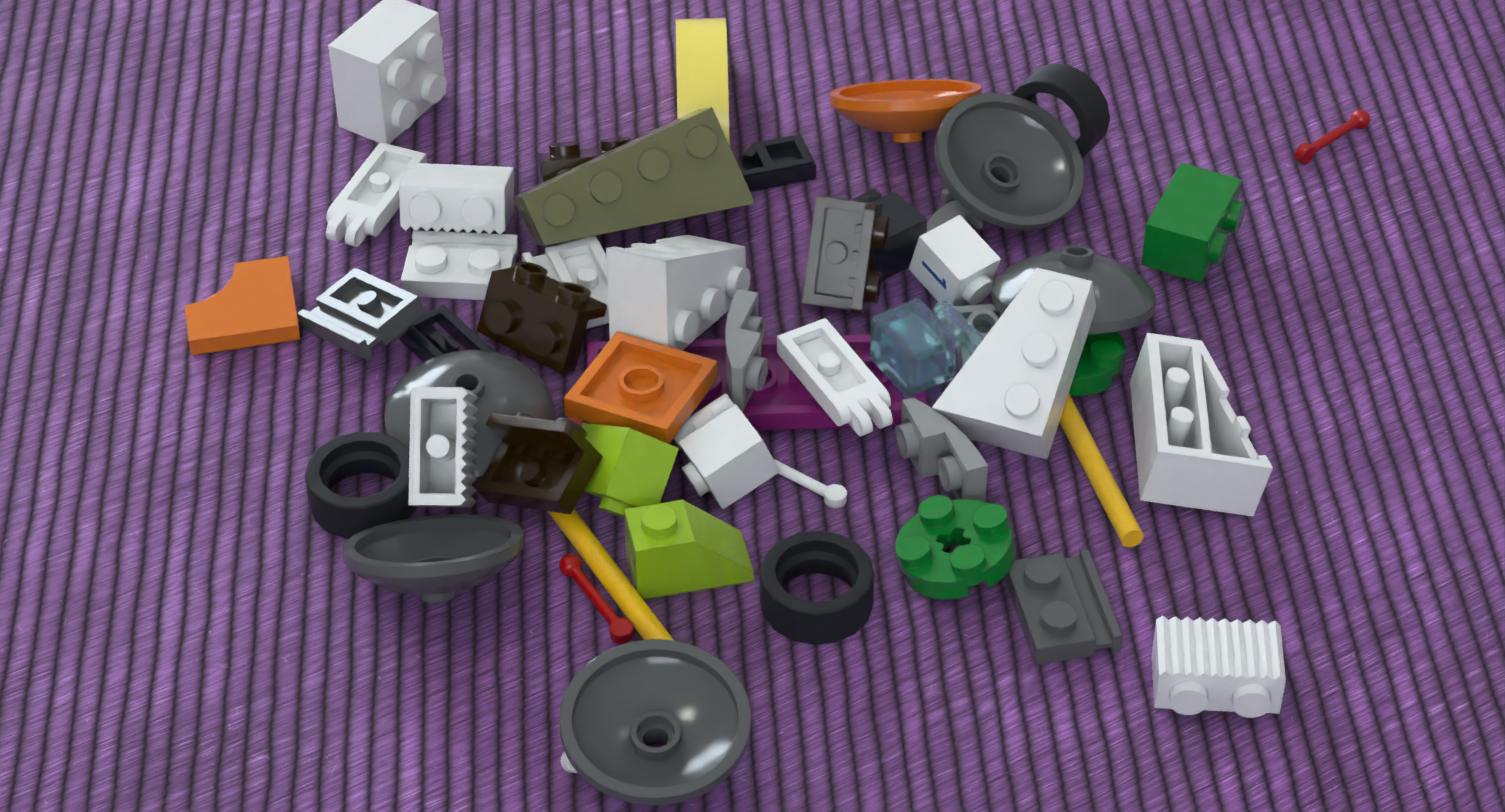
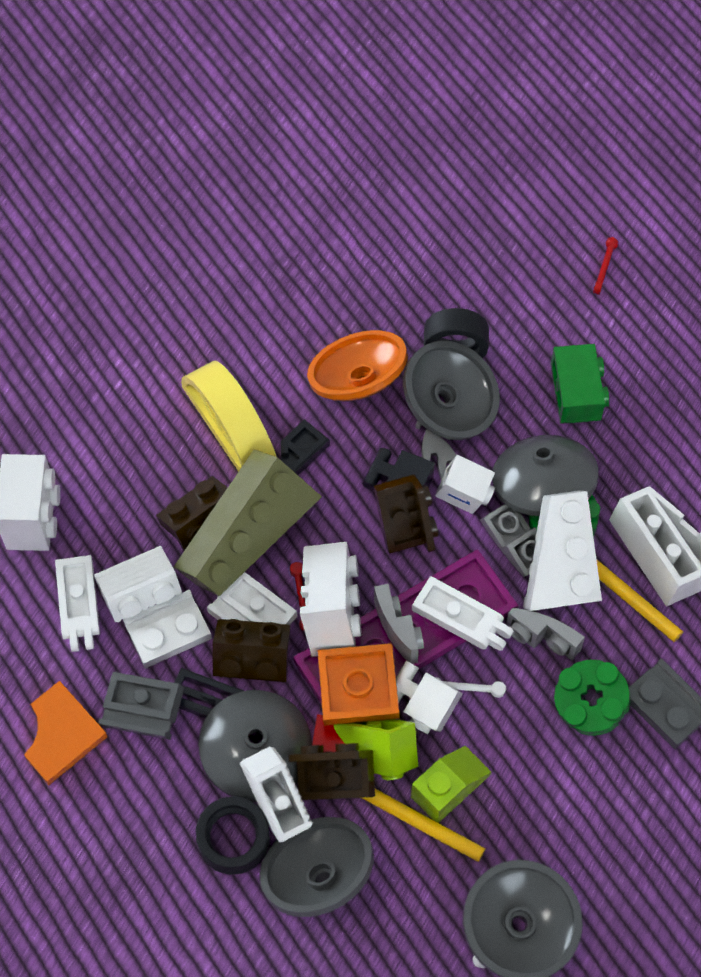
camera: 30 degrees left, 20 degrees up
(620, 628) = (443, 852): red hinge -> none
(822, 620) = (548, 741): black tyre -> none
(920, 344) = (492, 567): clear light blue brick -> none

